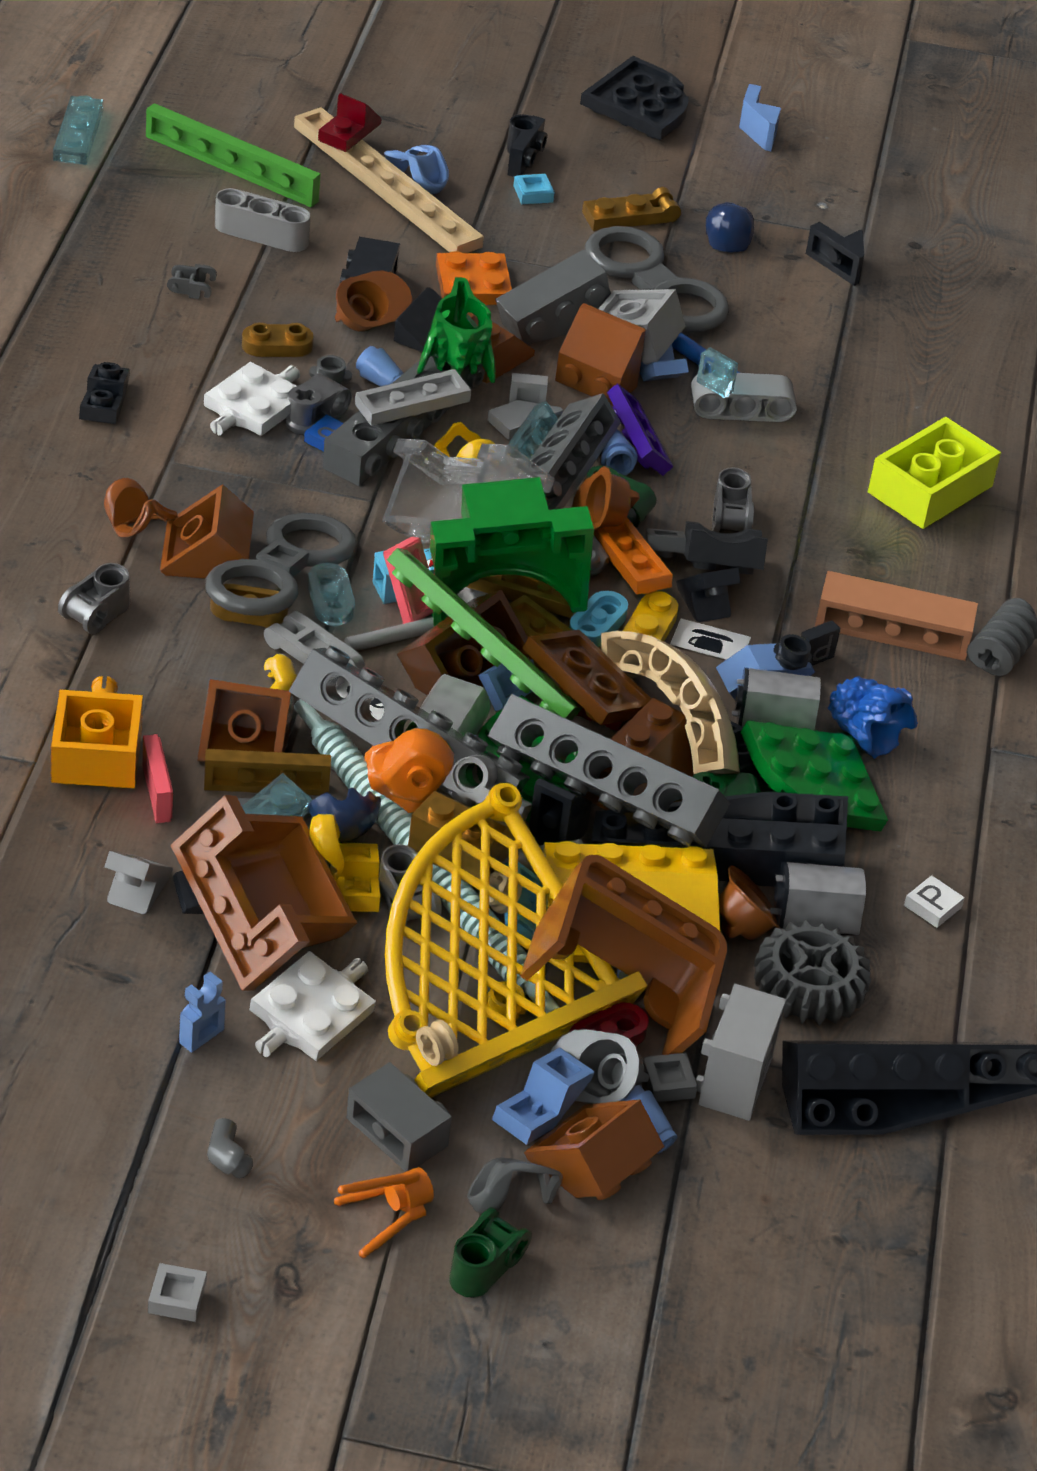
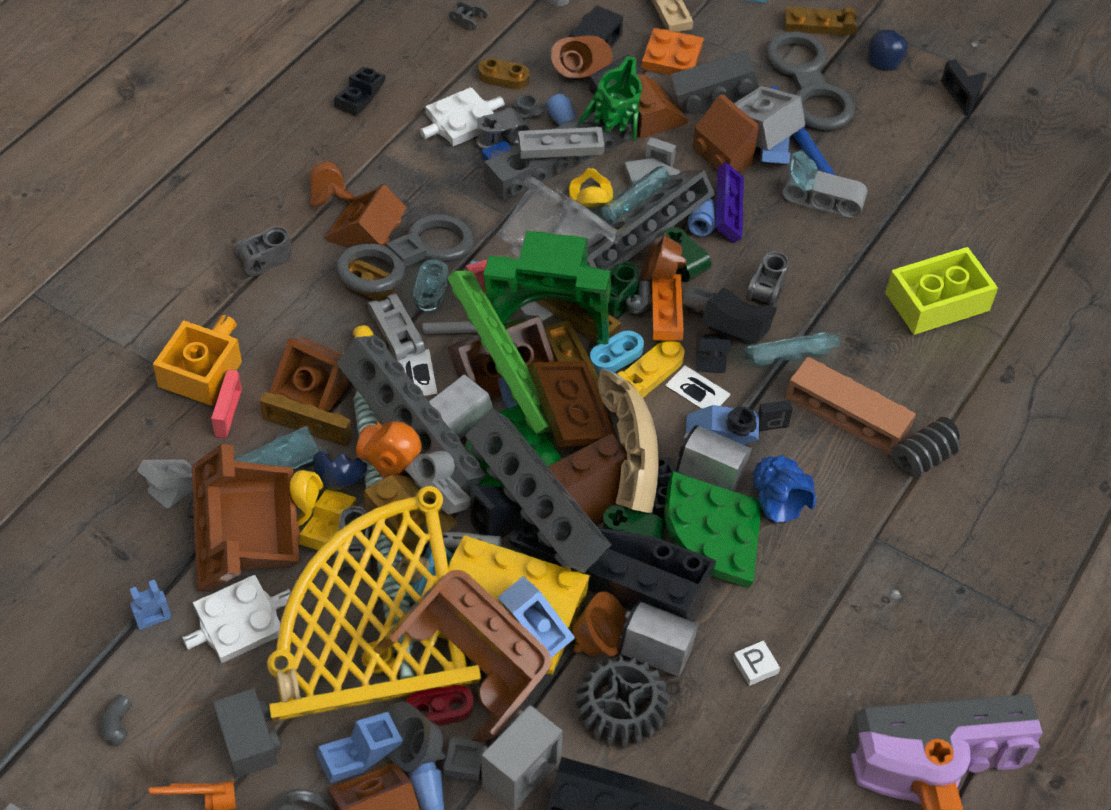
camera: 25 degrees right, 10 degrees up
(686, 886) = (536, 615): none -> light blue slope
(797, 570) = (792, 348): none -> clear light blue plate

